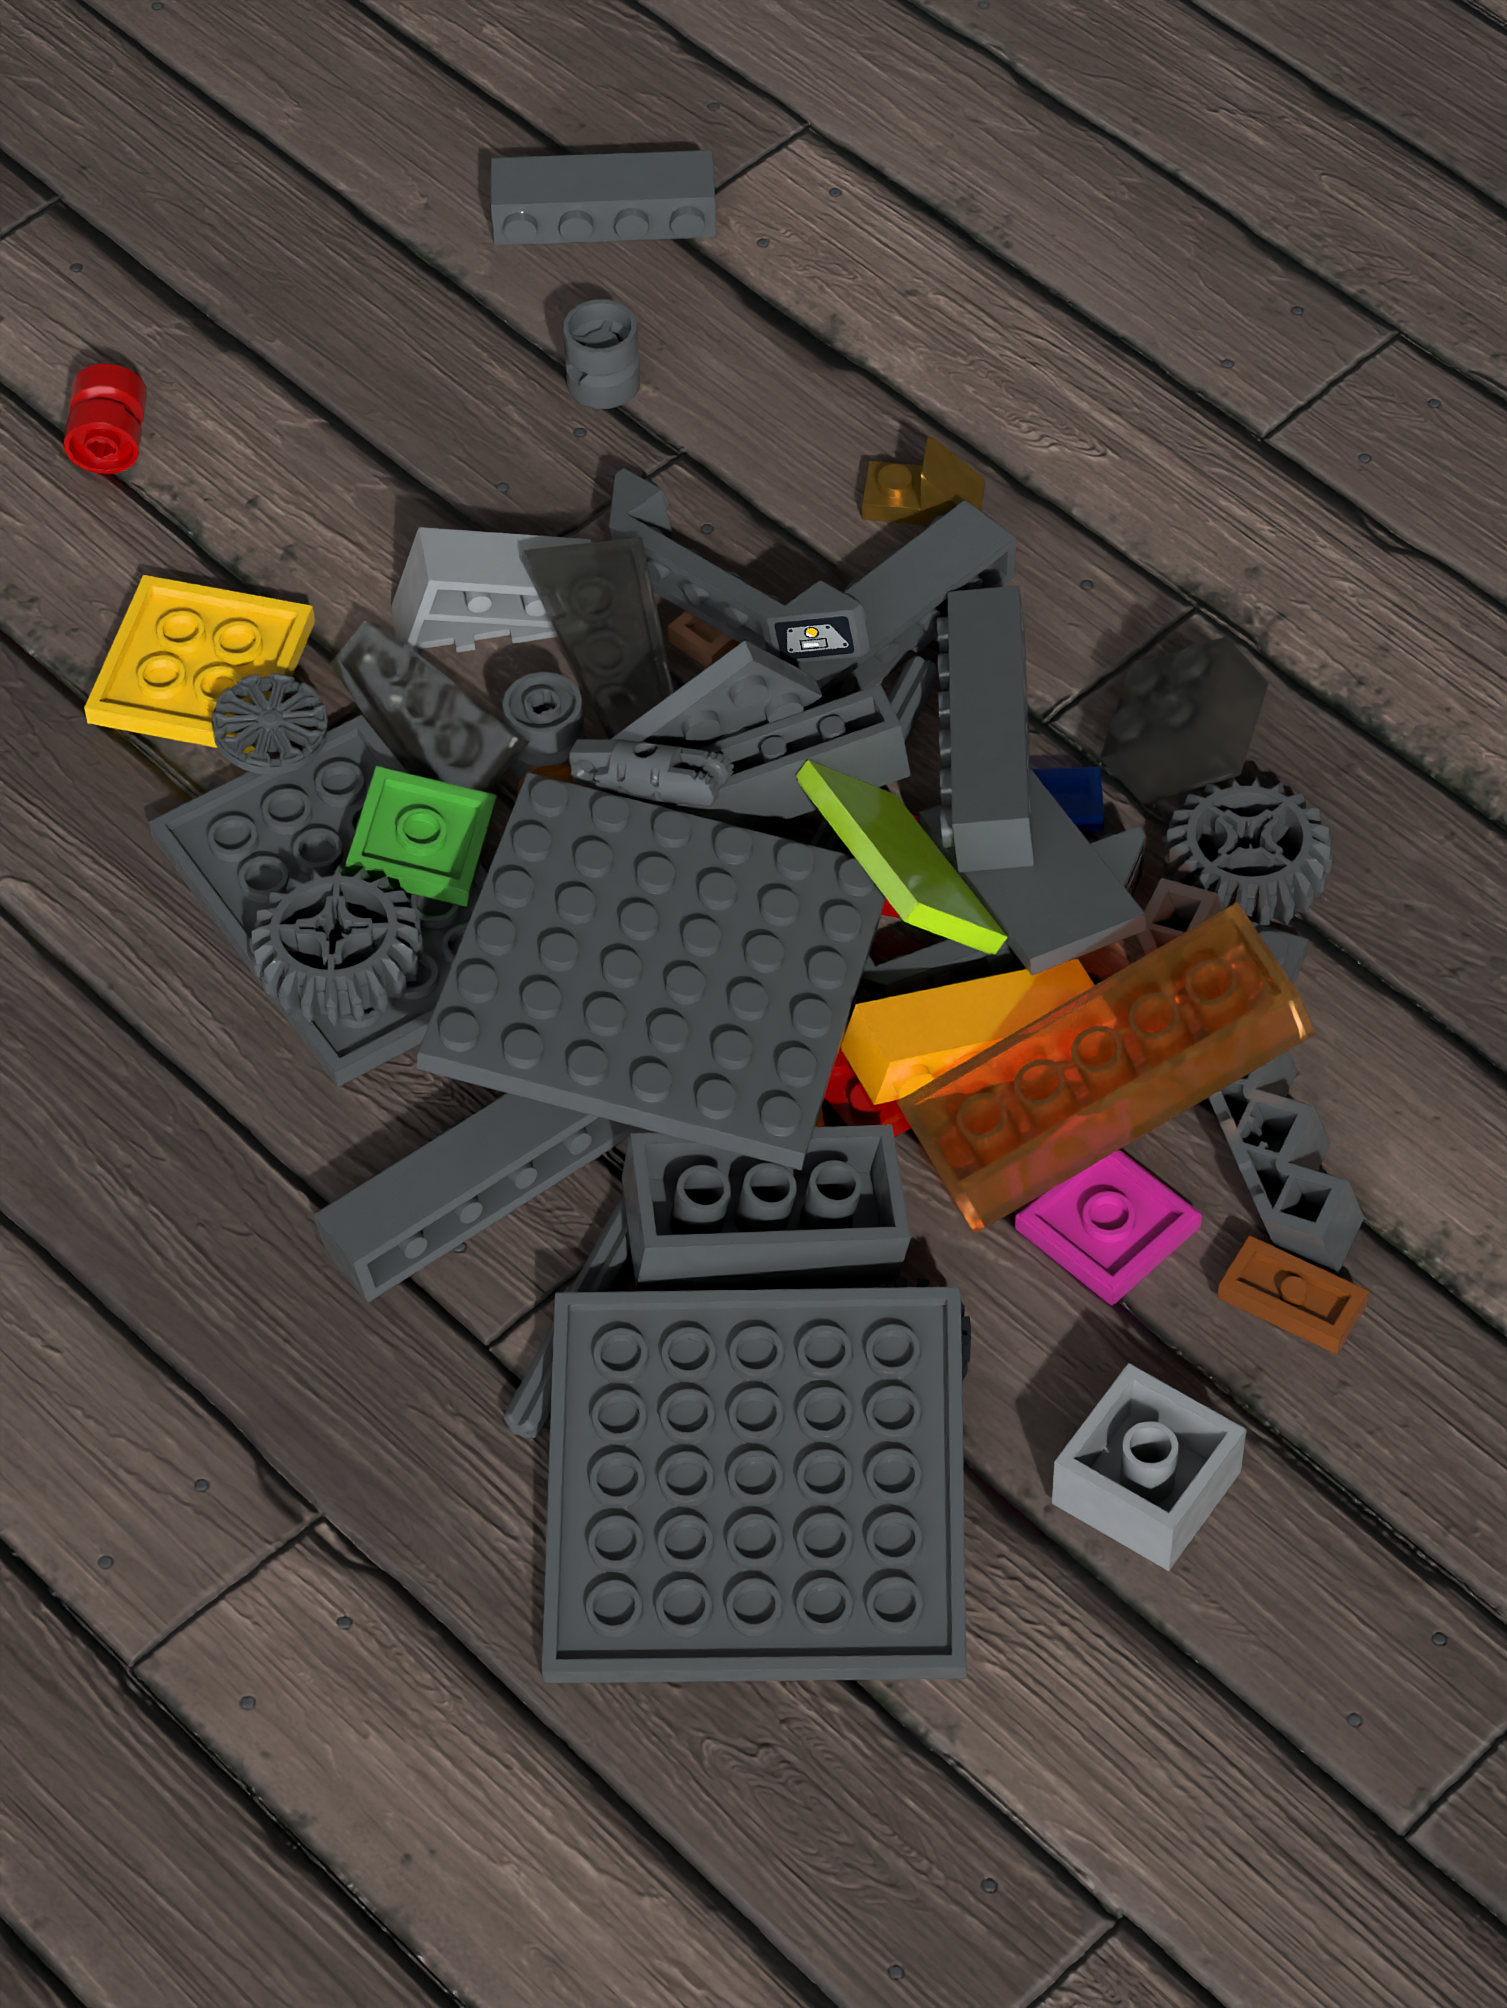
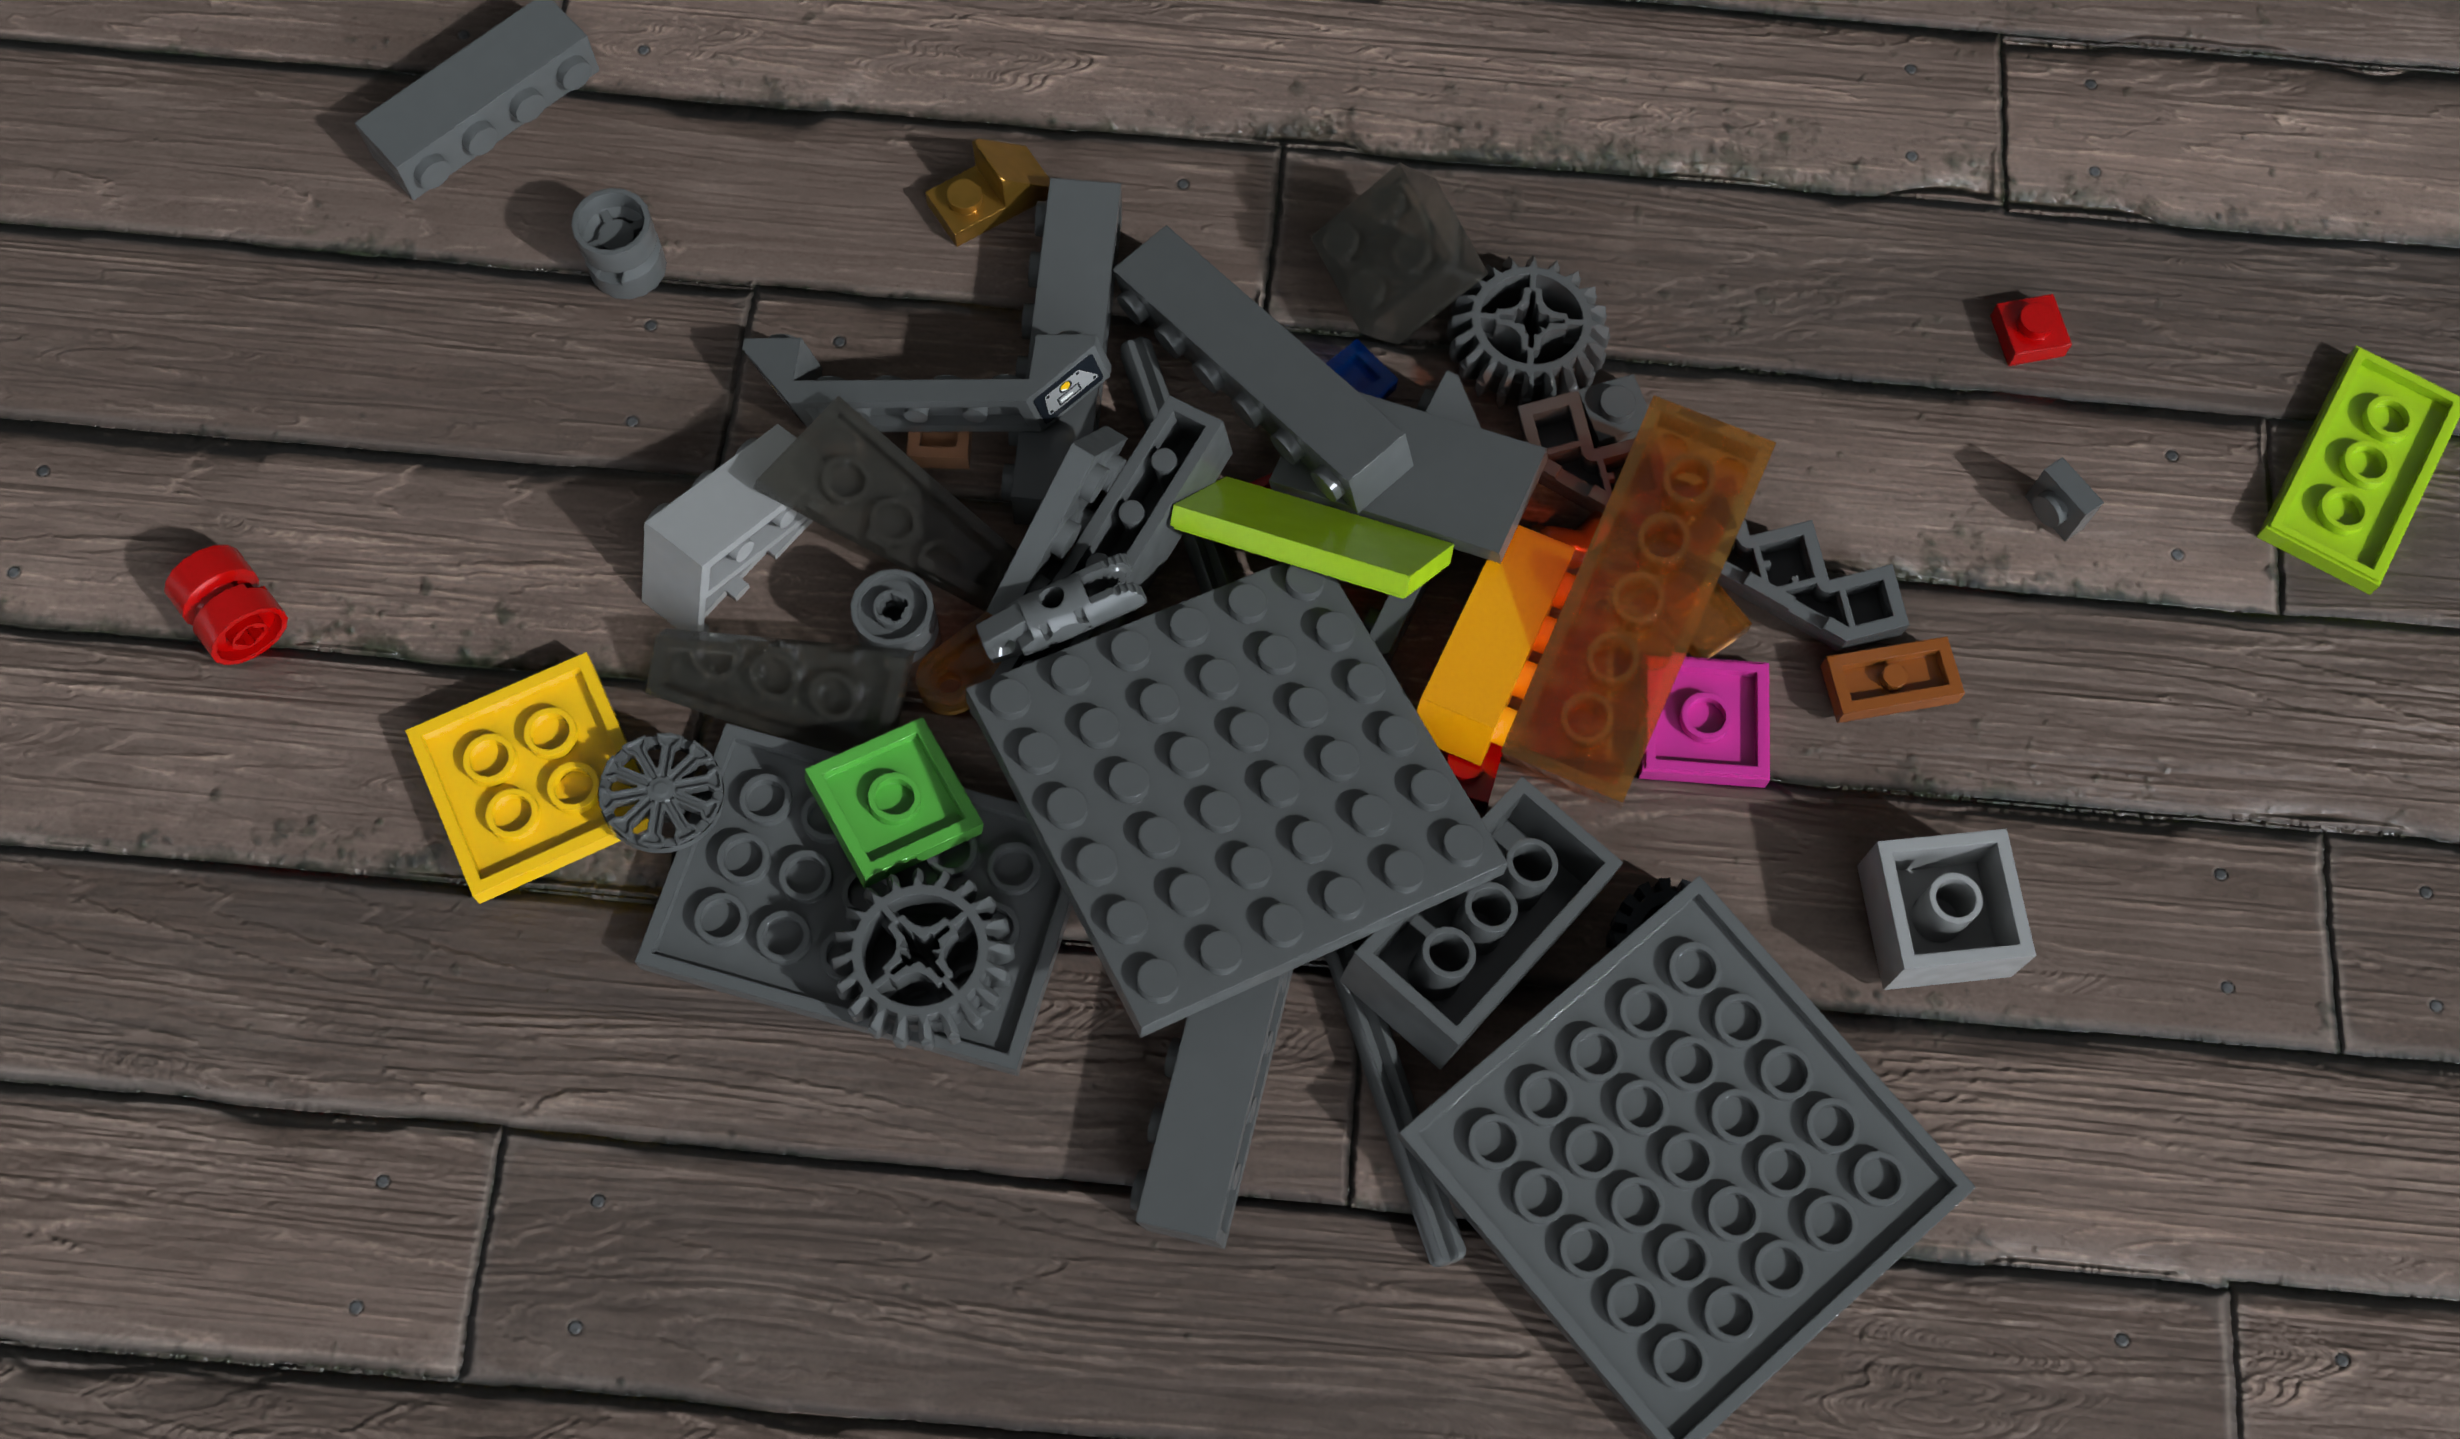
camera: 45 degrees left, 15 degrees up
(1186, 1153) = (1720, 625): none -> clear orange tile

